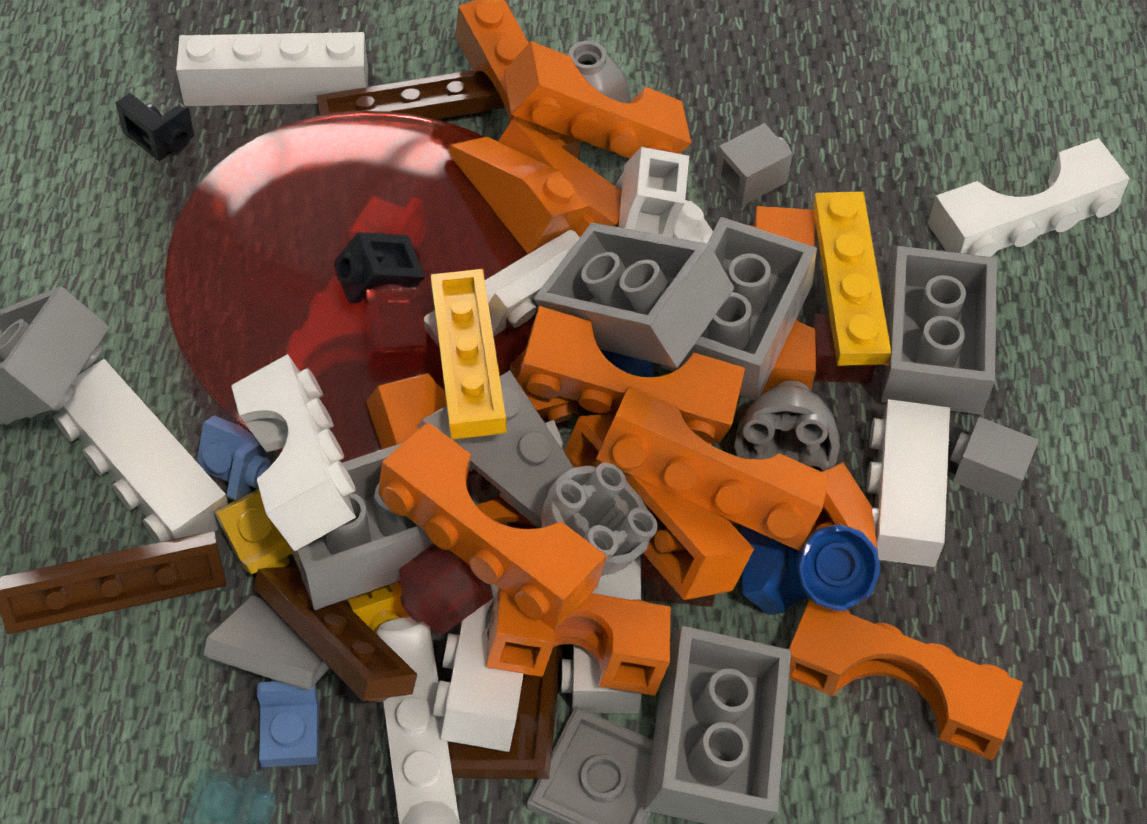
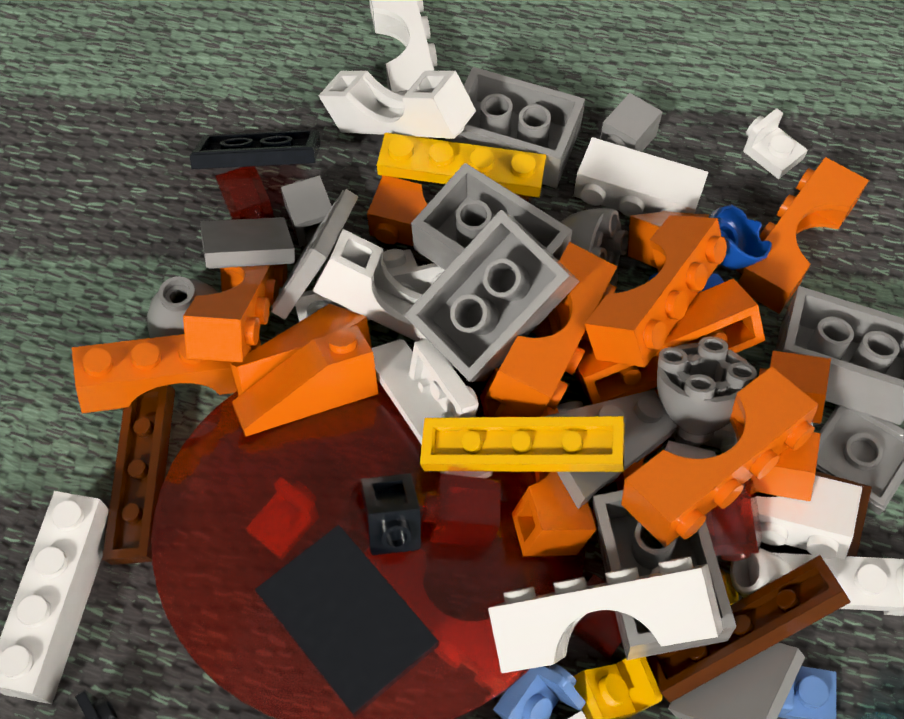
camera: 75 degrees left, 5 degrees up
(262, 252) = (347, 619): none -> black tile
(677, 105) = (246, 242): none -> light grey tile
(709, 167) = (314, 254): none -> light grey tile
(748, 102) = (244, 194): none -> clear red brick
(813, 97) = (256, 149): none -> black tile
(902, 193) = (430, 108): none -> white arch
(1041, 637) = (773, 146): none -> white bracket

